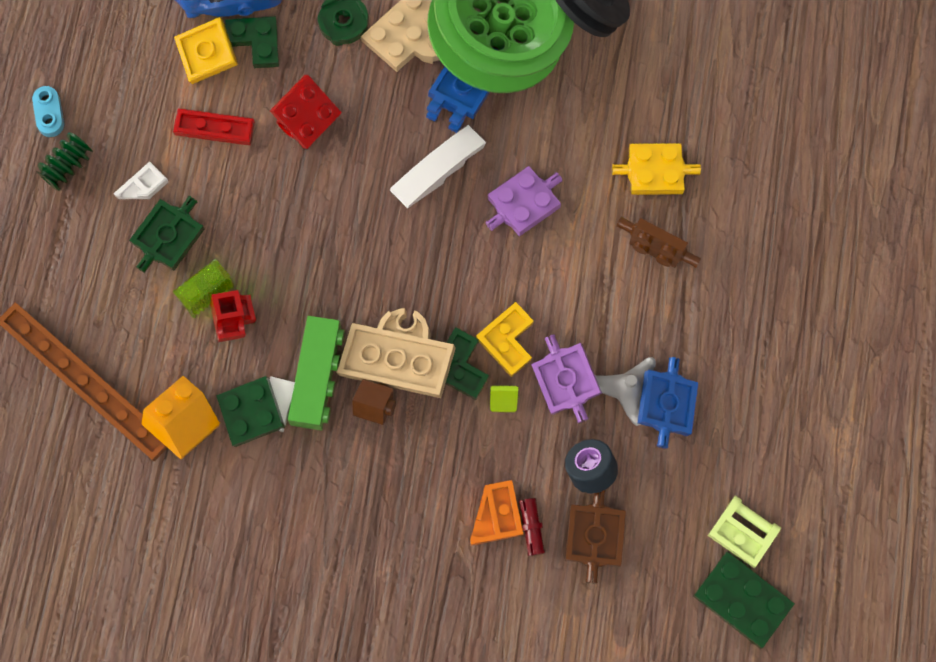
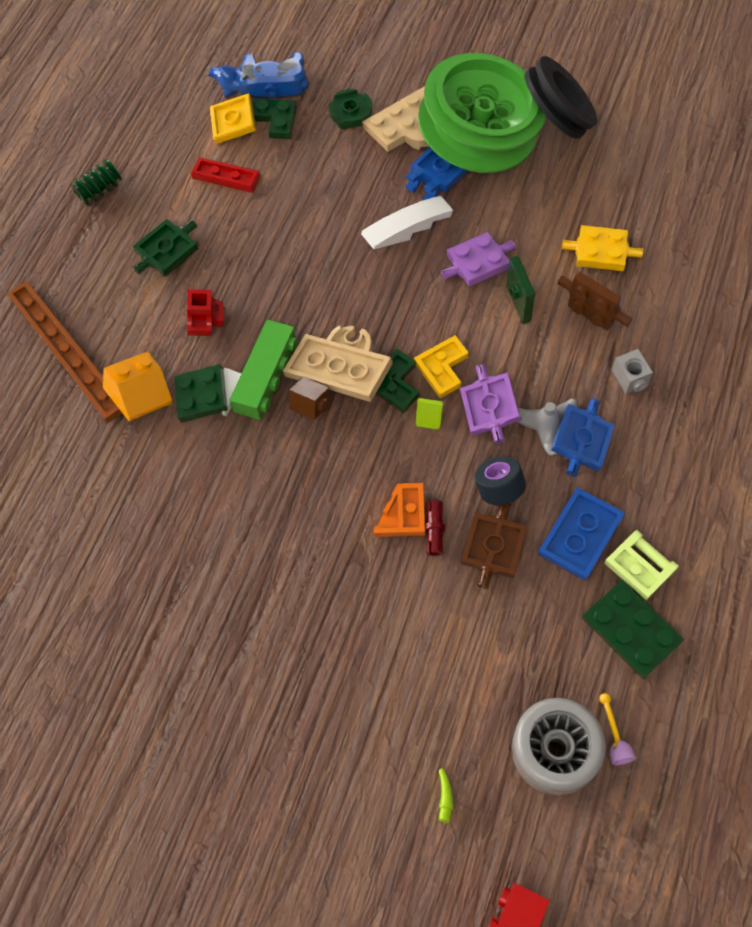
camera: 20 degrees right, 10 degrees down
(48, 109) = (95, 148): medium azure plate -> none
(142, 184) = (156, 210): white tile -> none
(197, 291) = (174, 290): clear neon green brick -> none
(305, 112) = (302, 168): red plate -> none
(577, 239) = (520, 289): none -> dark green plate
(680, 508) = (581, 534): none -> blue plate
(710, 307) = (632, 362): none -> light grey brick

